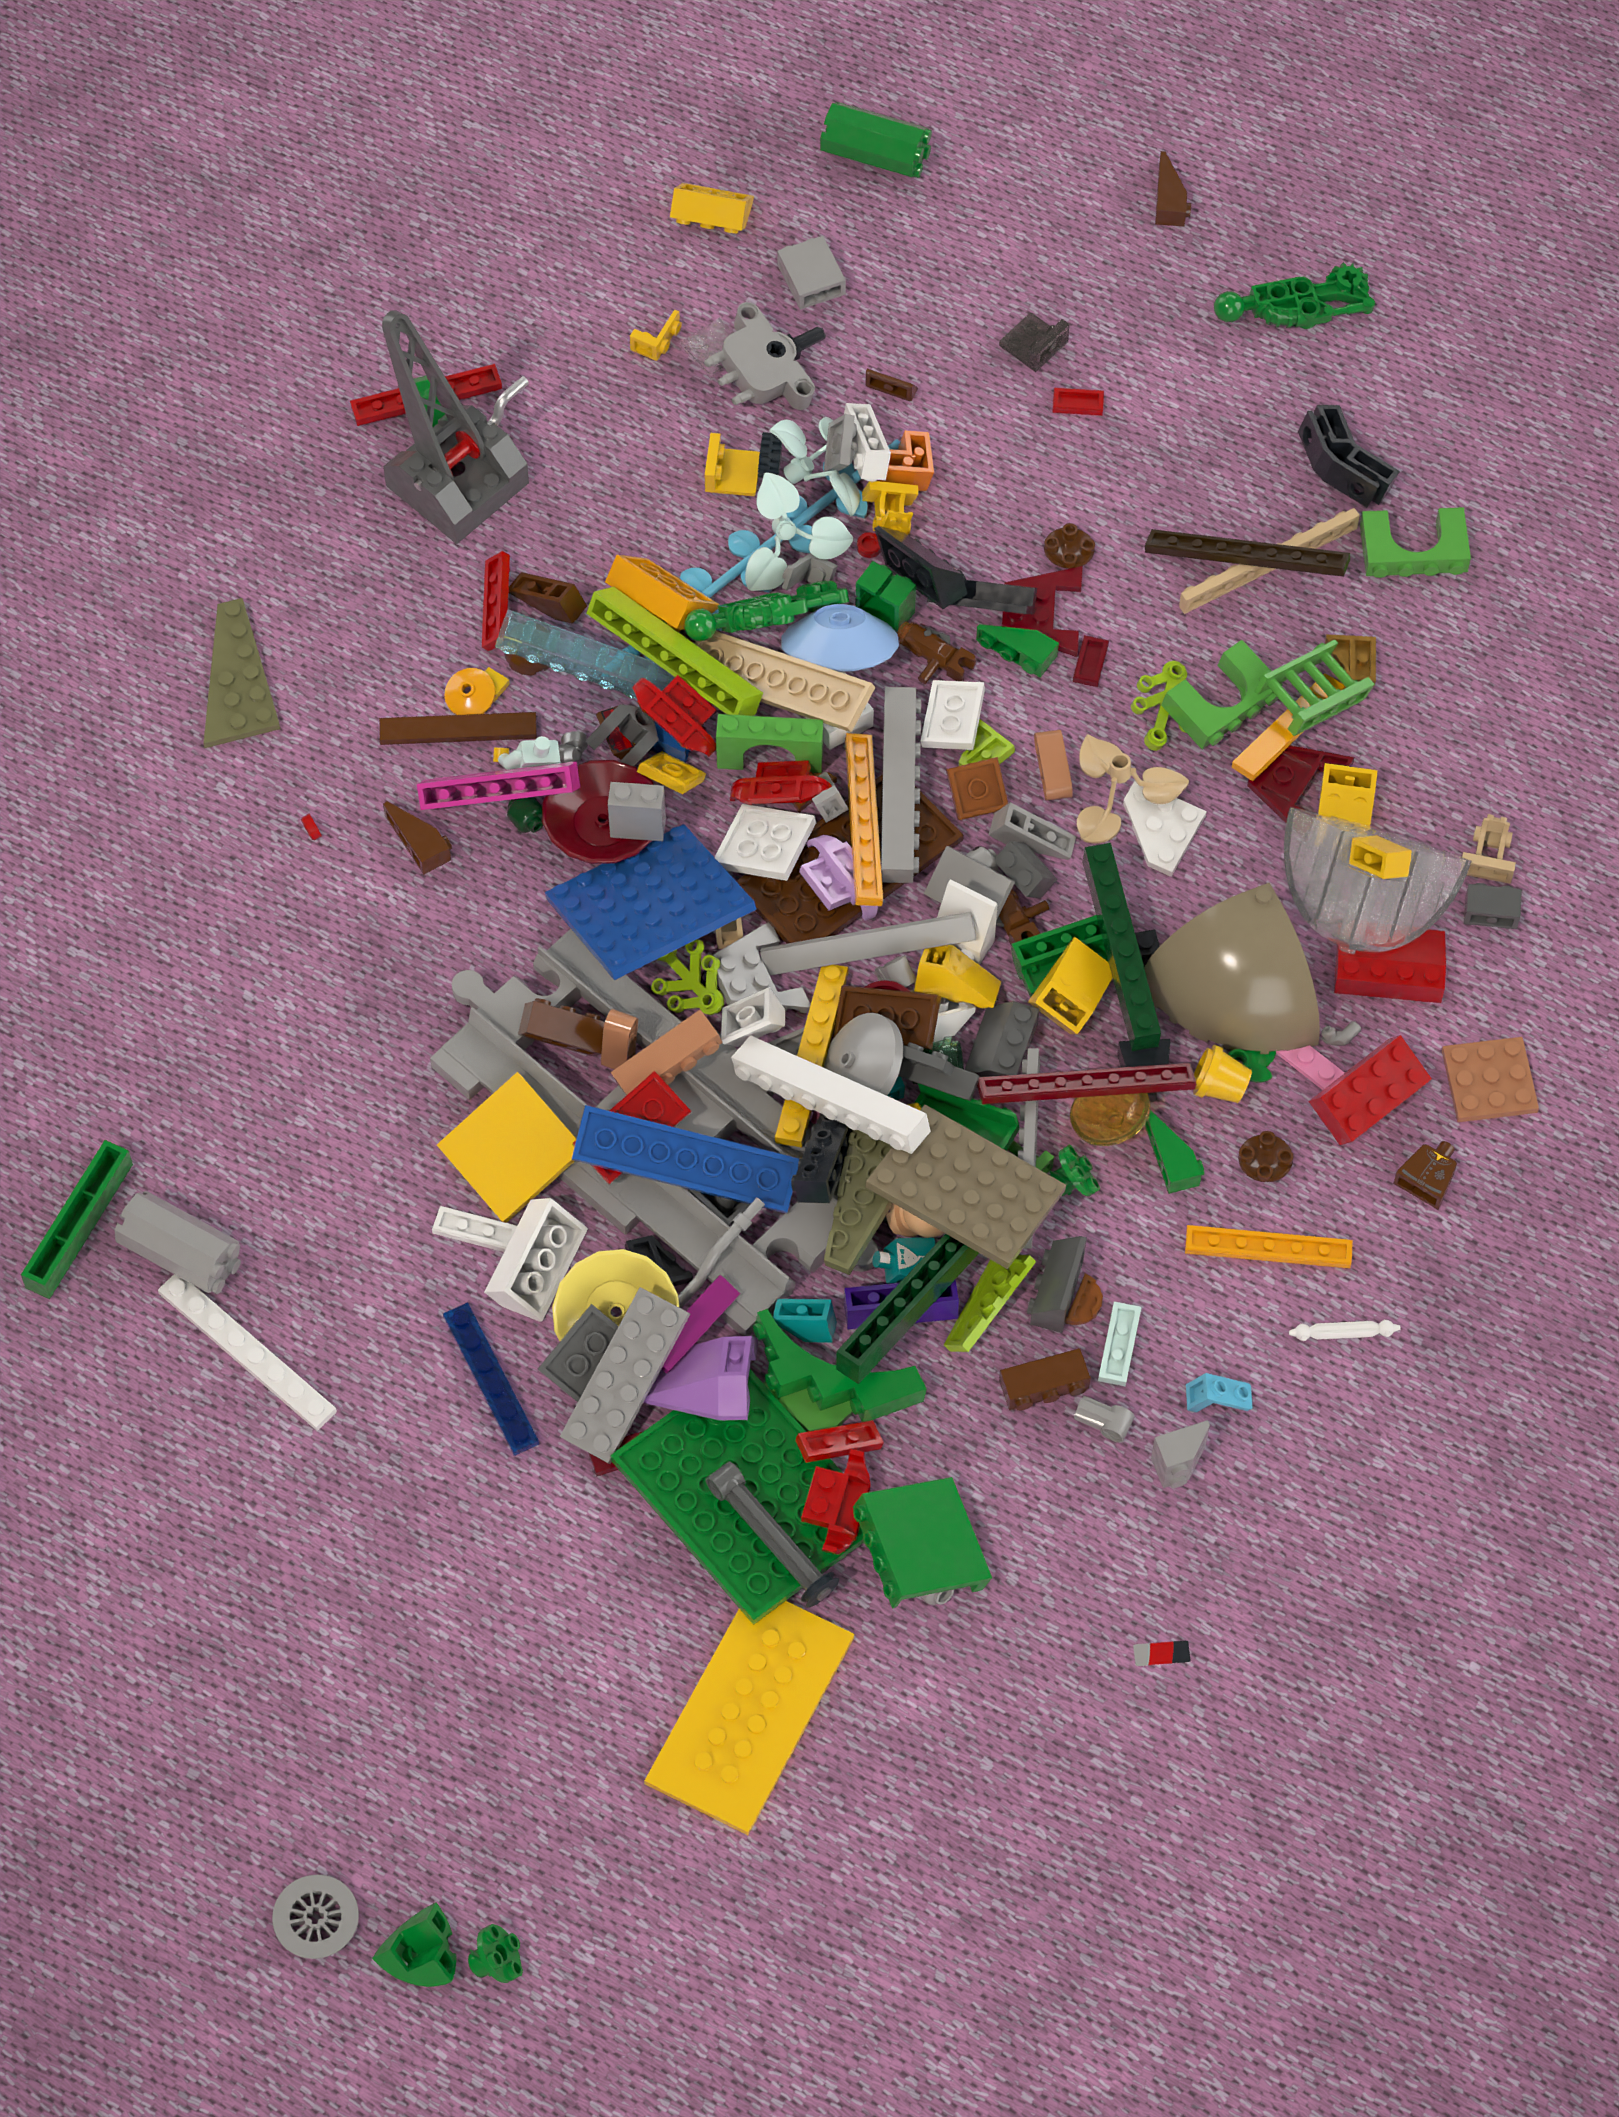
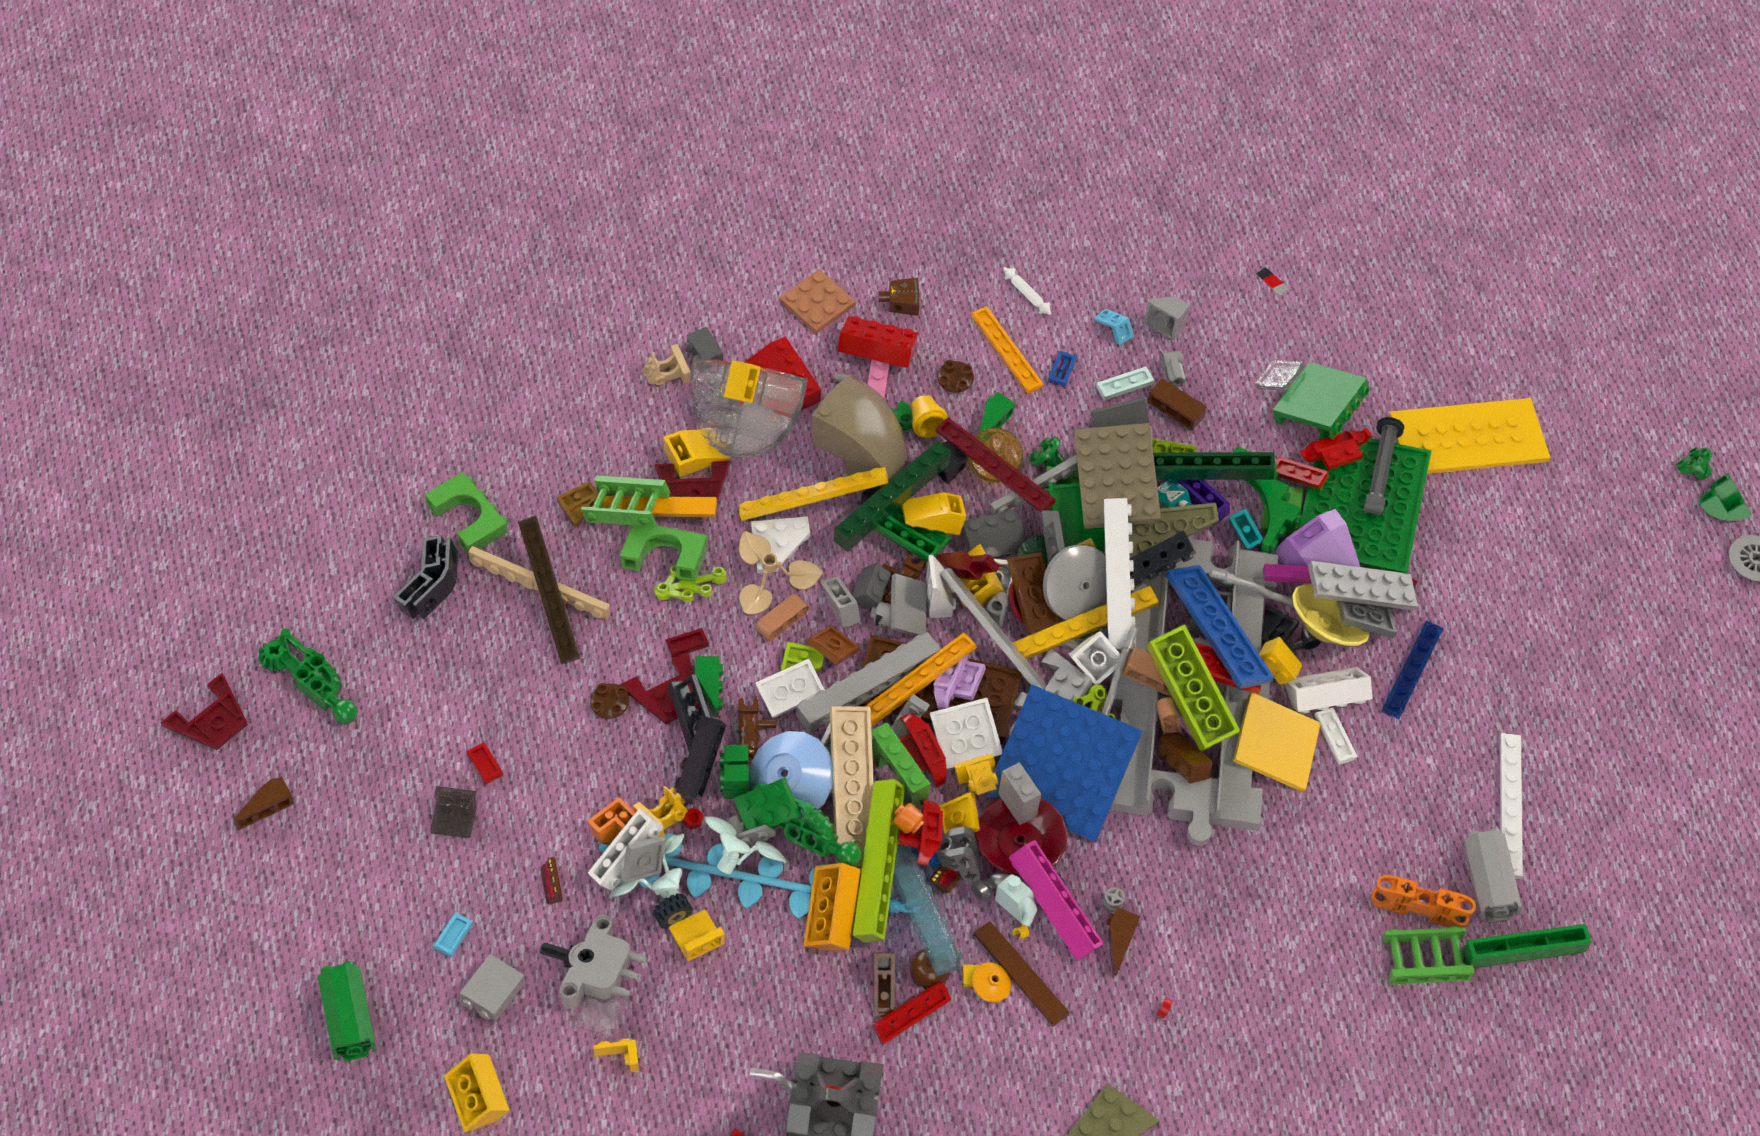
camera: 130 degrees left, 5 degrees down
(142, 1095) = (1424, 974): none -> bright green fence
(222, 1136) = (1410, 897): none -> orange piece
(467, 857) = (1112, 895): none -> light grey wheel
(603, 1218) = (1280, 661): none -> yellow brick
(619, 1051) = (1192, 688): none -> lime brick
(691, 690) = (908, 818): none -> orange head
(713, 823) = (978, 774): none -> yellow tile
(732, 1043) = (1127, 647): none -> light grey bar
(812, 581) = (767, 805): none -> green plate
(898, 276) = (453, 934): none -> medium azure tile
(973, 958) = (968, 566): none -> dark red slope
(998, 1528) = (1279, 375): none -> clear plate
(1186, 875) = (813, 493): none -> yellow plate
(1207, 1308) = (1058, 380): none -> blue tile
(1301, 202) = (216, 722): none -> dark red wing

